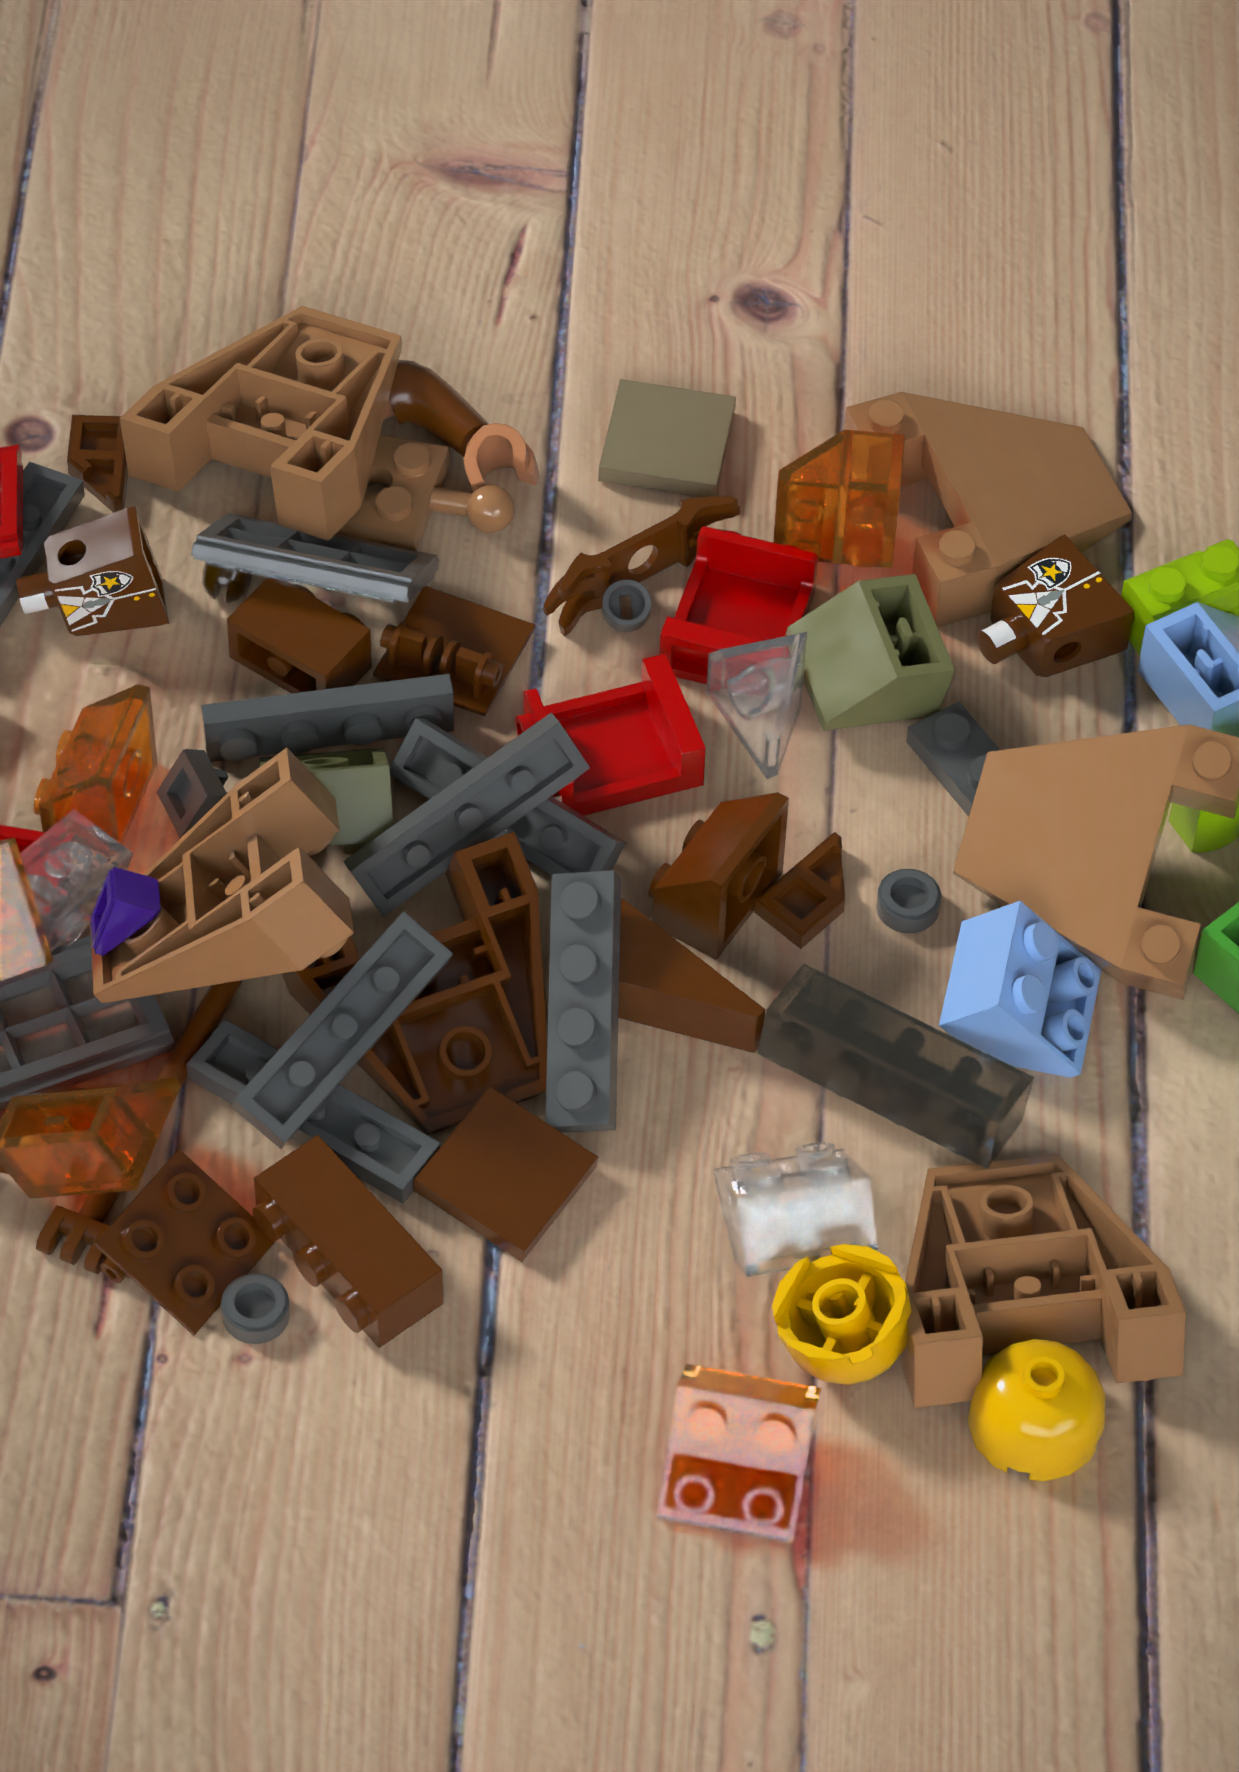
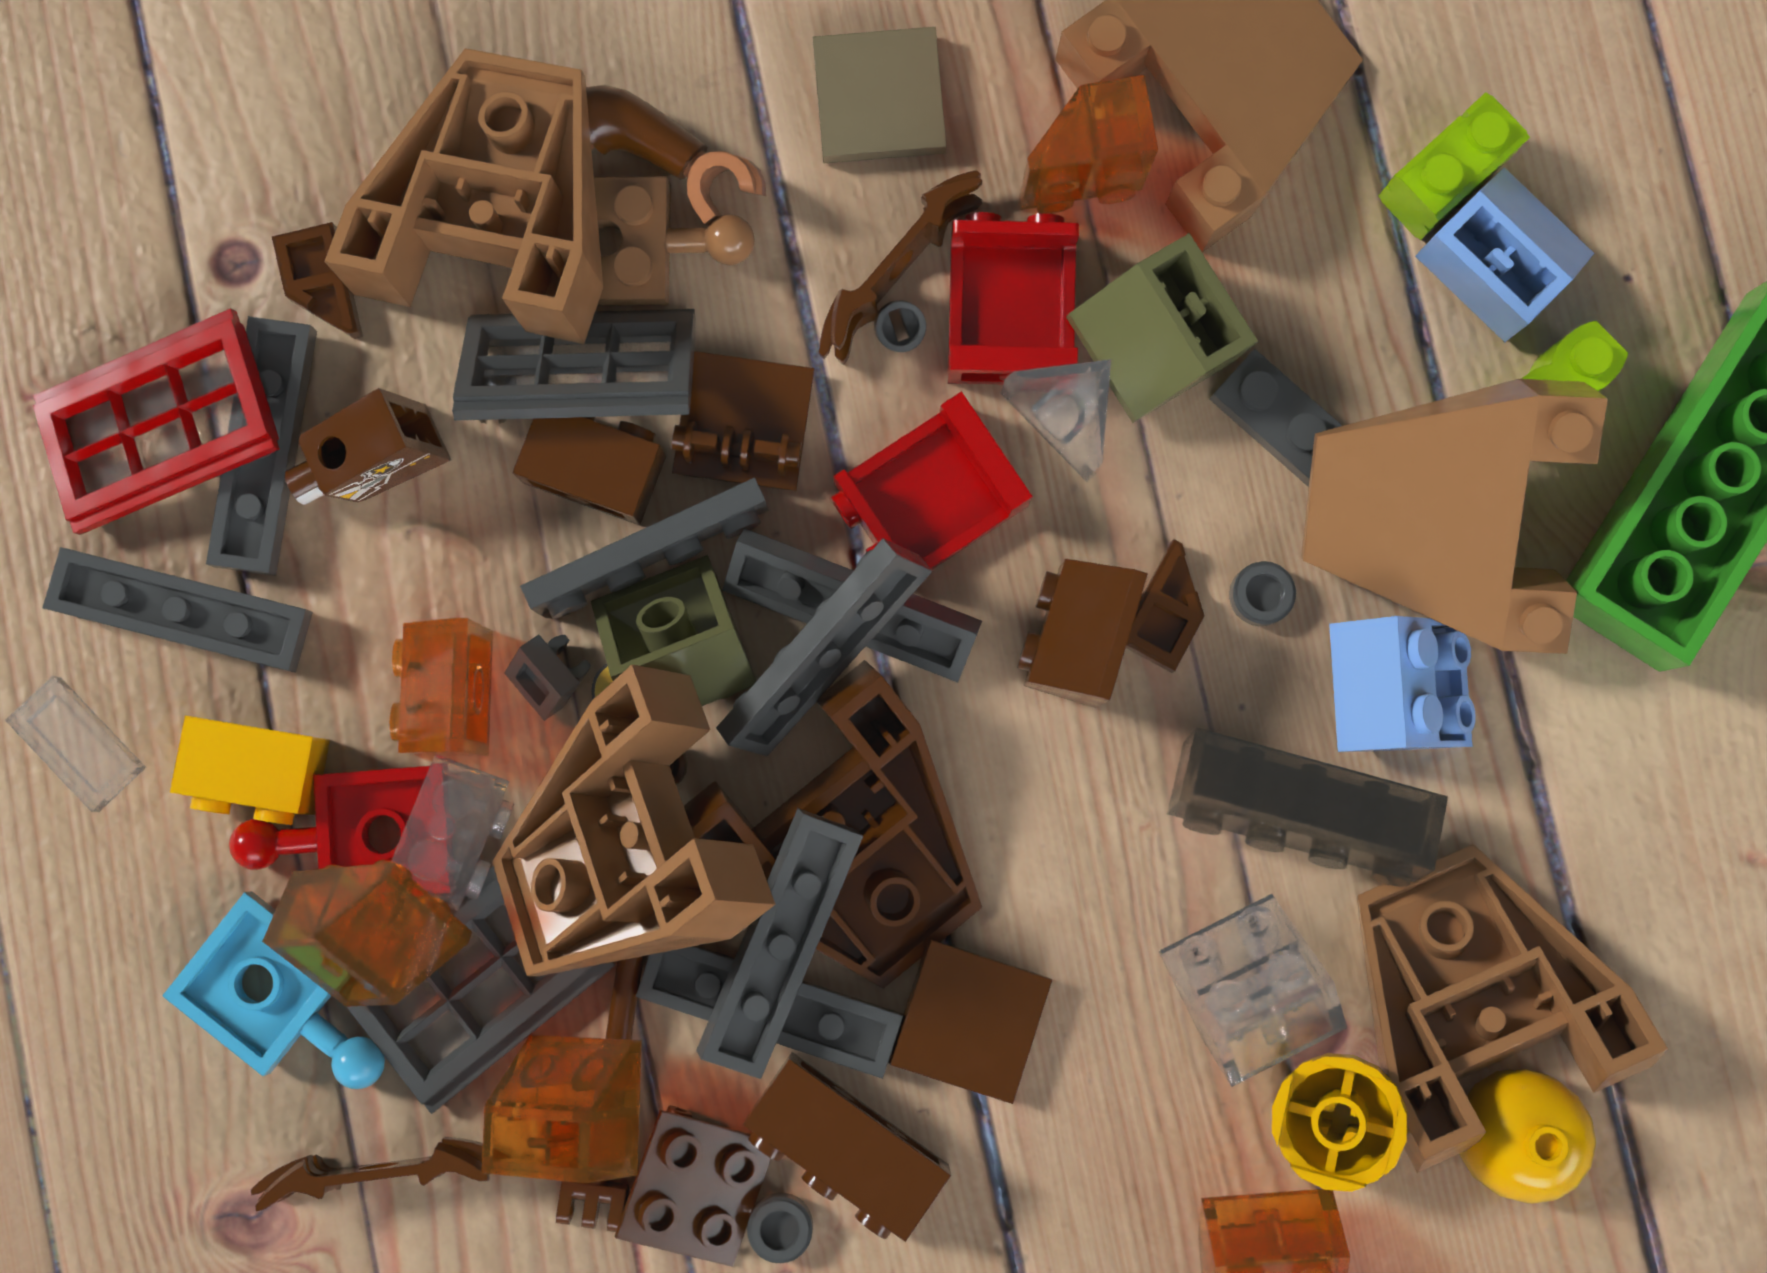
camera: 15 degrees left, 30 degrees up
(122, 908) = (525, 867): dark purple slope -> none
(583, 1001) = (996, 829): dark grey plate -> none
(678, 991) = (1039, 764): reddish brown slope -> none
(1056, 613) = (1324, 215): reddish brown torso -> none

